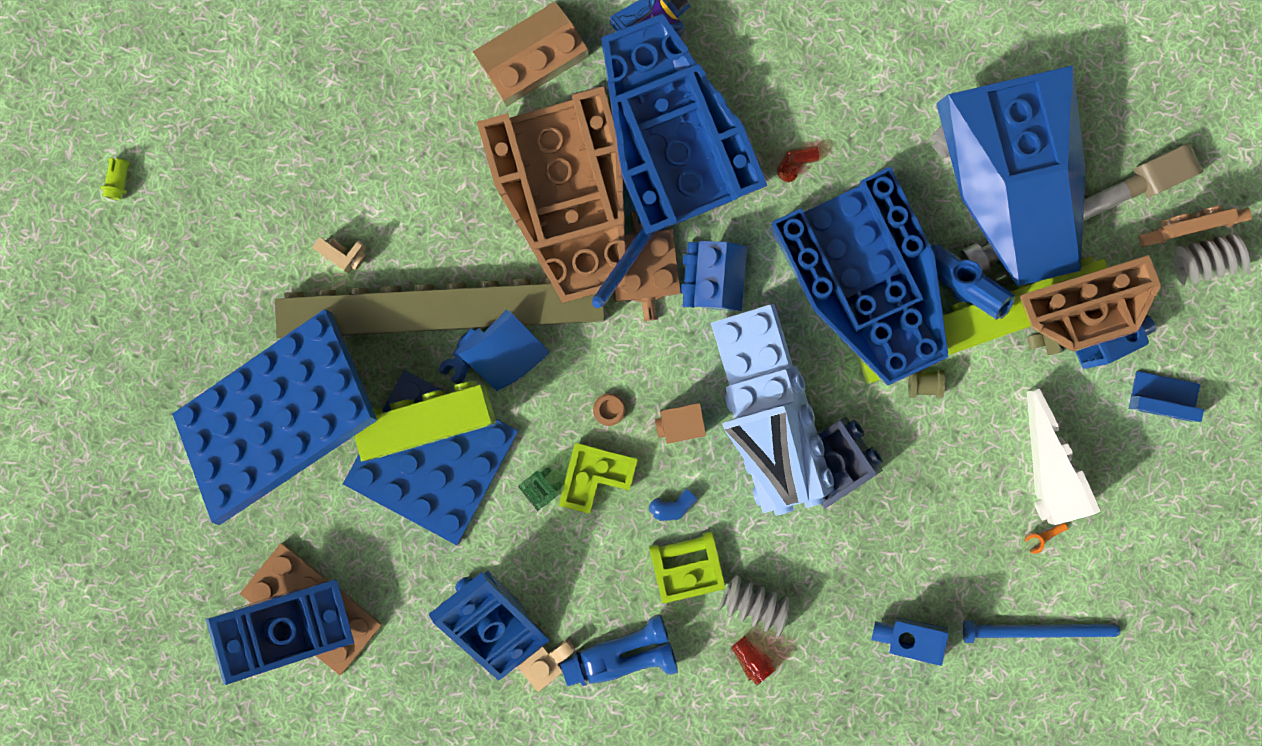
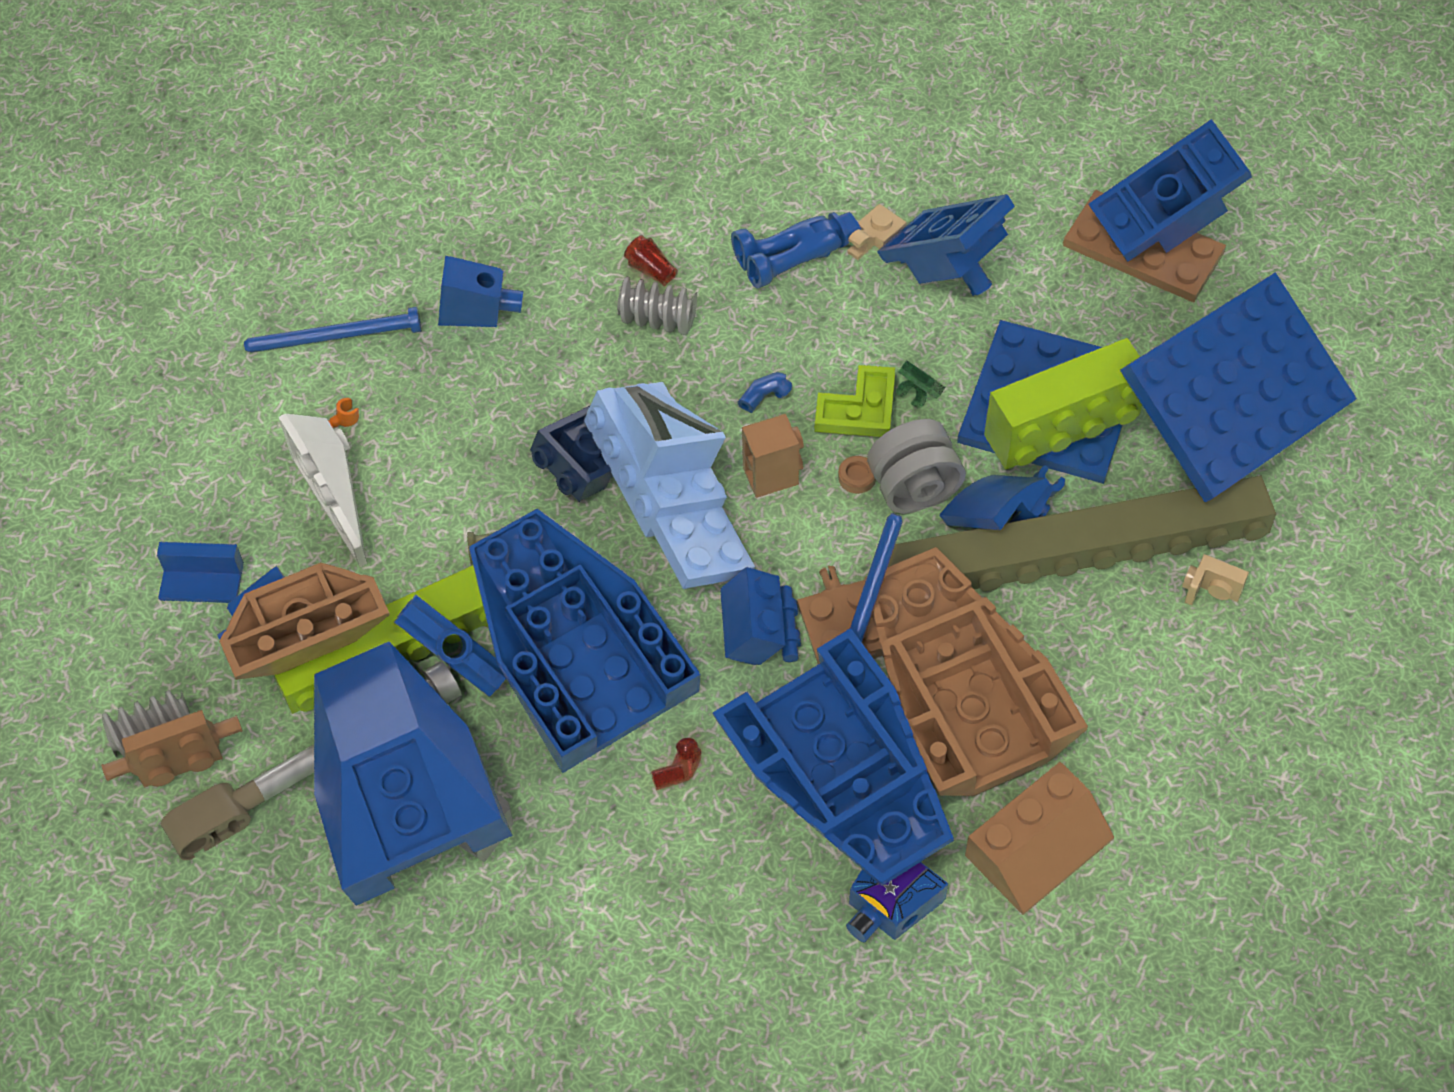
camera: 175 degrees right, 30 degrees down
(562, 391) = (916, 466): none -> light grey wheel
(689, 578) = (735, 324): lime plate -> none

